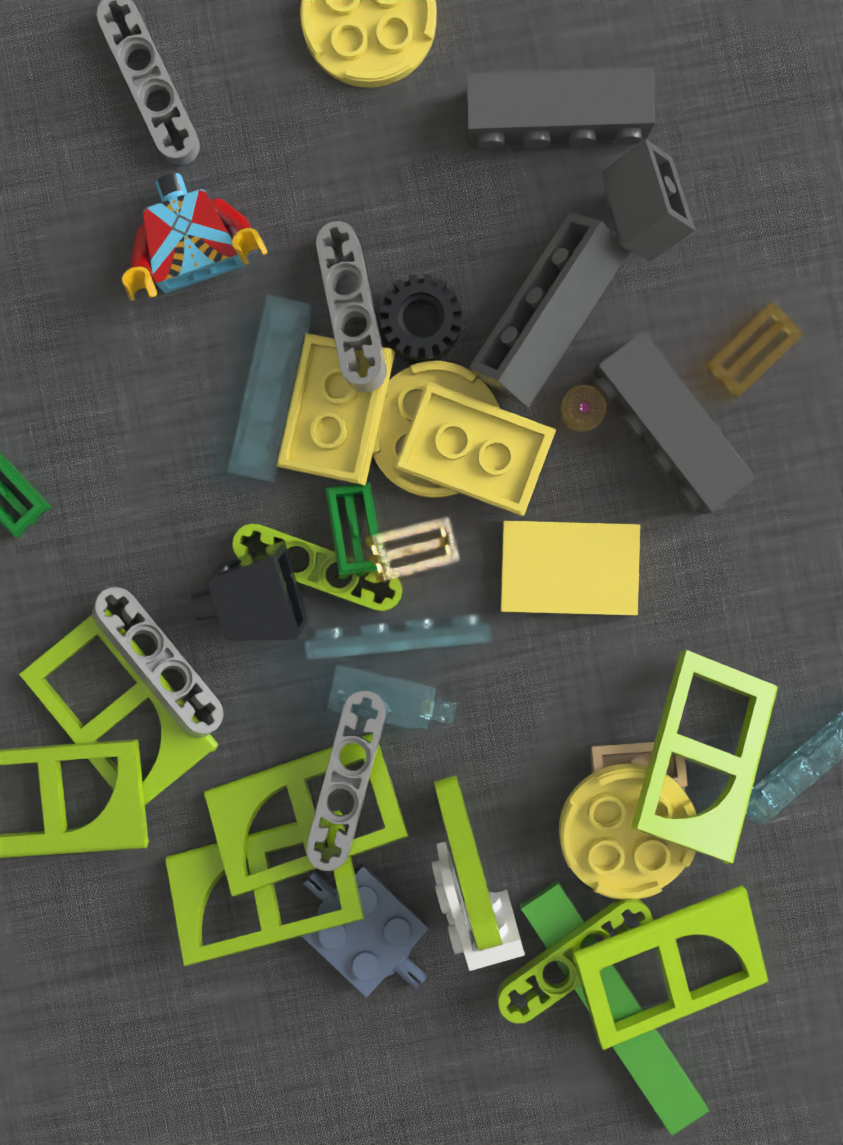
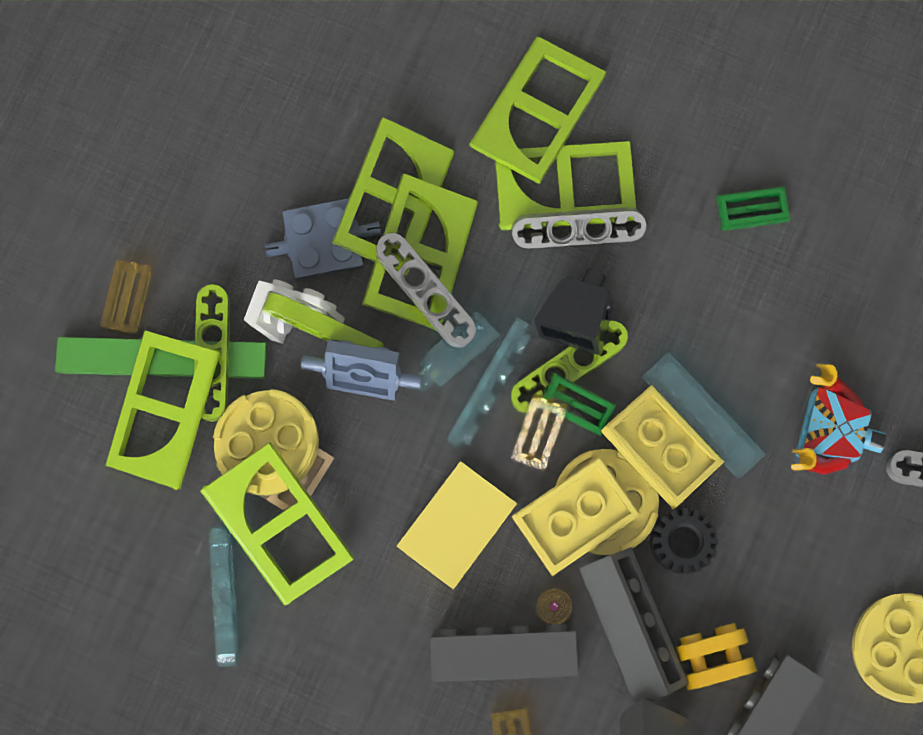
camera: 125 degrees right, 10 degrees down
(346, 307) = (723, 495): light grey beam -> none
(482, 786) = (361, 370): none -> sand blue plate
(523, 230) = (727, 639): none -> yellow brick
(583, 1109) = (131, 268): none -> clear yellow tile

